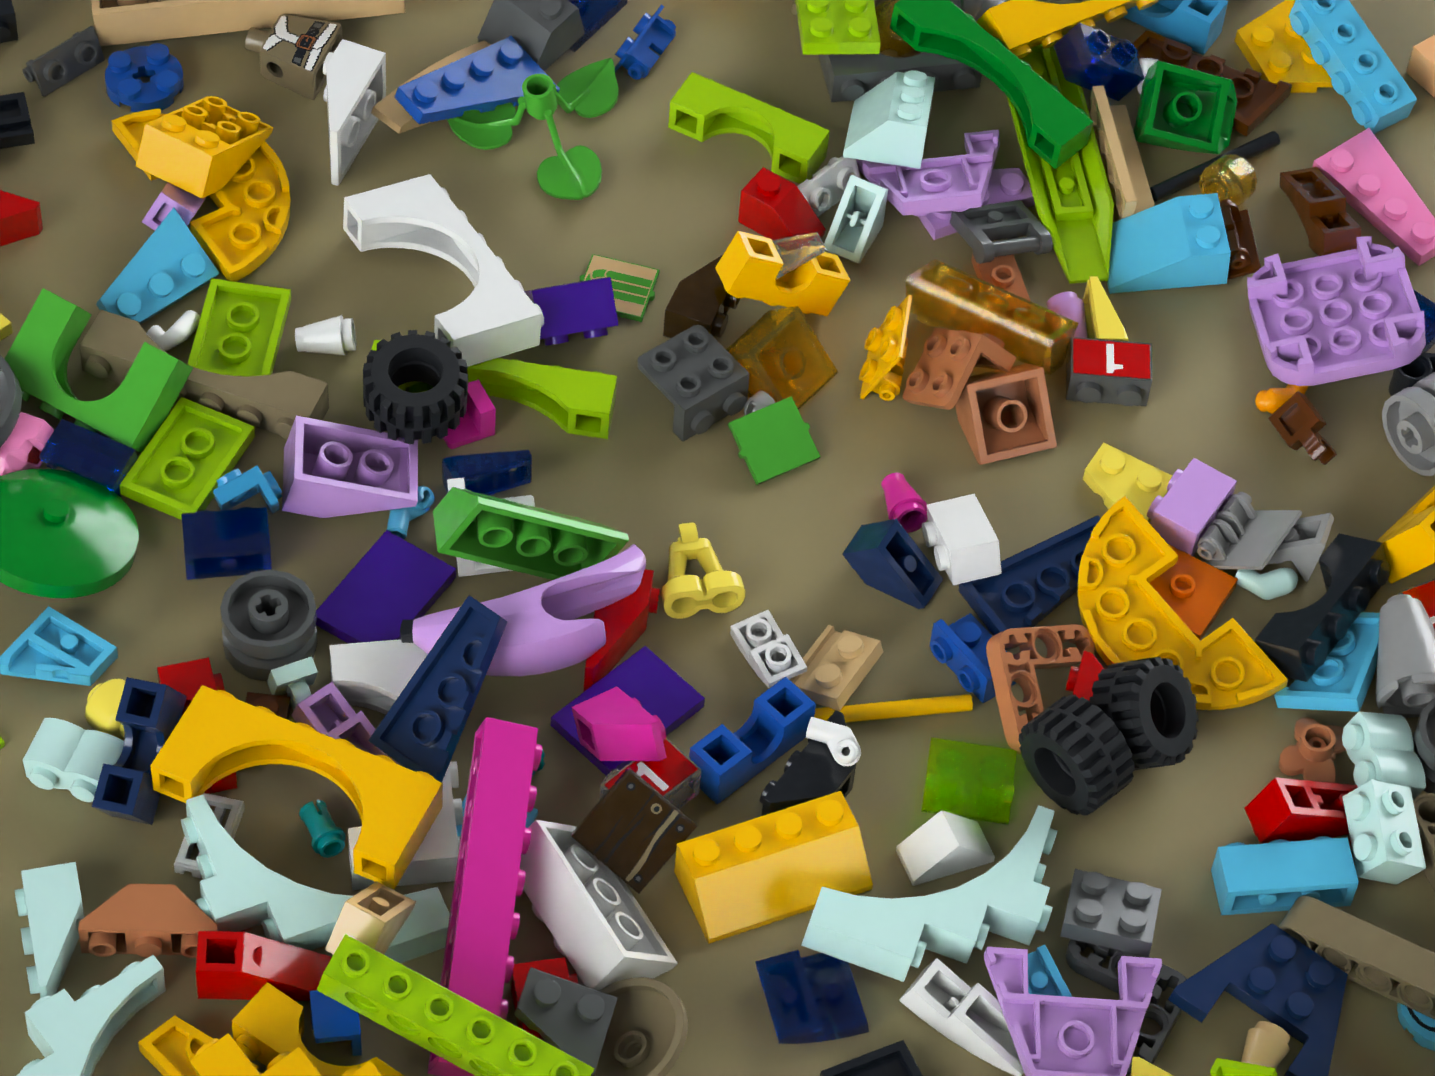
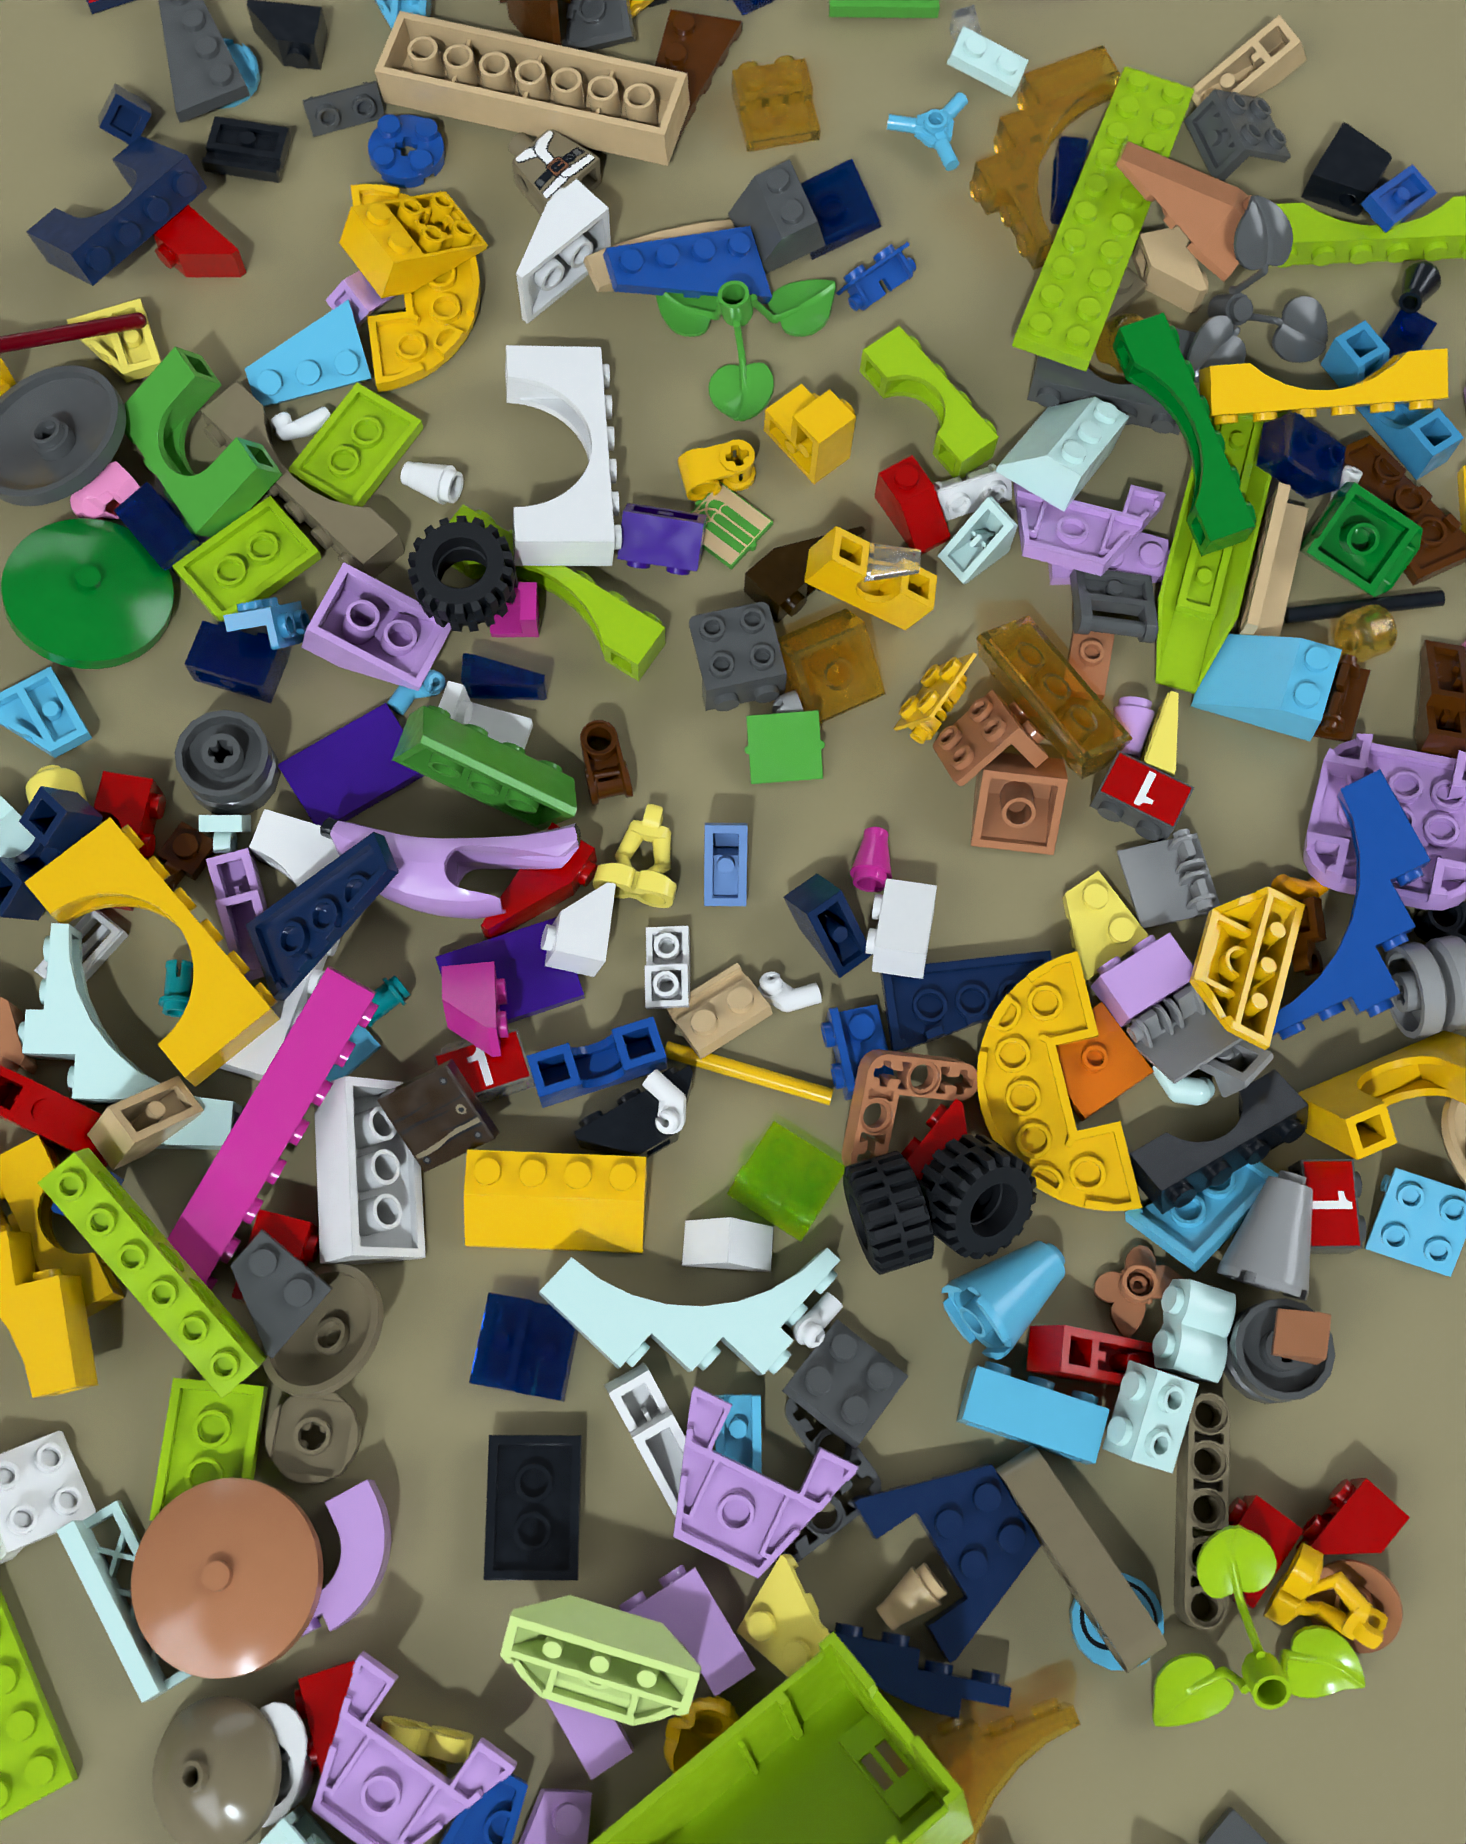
camera: 25 degrees right, 20 degrees up
(587, 240) = (706, 467): none -> yellow piece
(623, 505) = (605, 769): none -> reddish brown piece
(659, 183) = (812, 430): none -> yellow brick
(680, 645) = (581, 933): none -> white slope
(776, 544) = (725, 864): none -> medium blue slope
(891, 637) = (784, 996): none -> white arm
(1058, 873) = (810, 1327): none -> white arm
(1168, 428) = (1168, 880): none -> light grey hinge
(1206, 795) = (1004, 1296): none -> medium azure cone
(1271, 456) = (1247, 962): none -> yellow wedge
(1343, 333) = (1384, 853): none -> blue arch

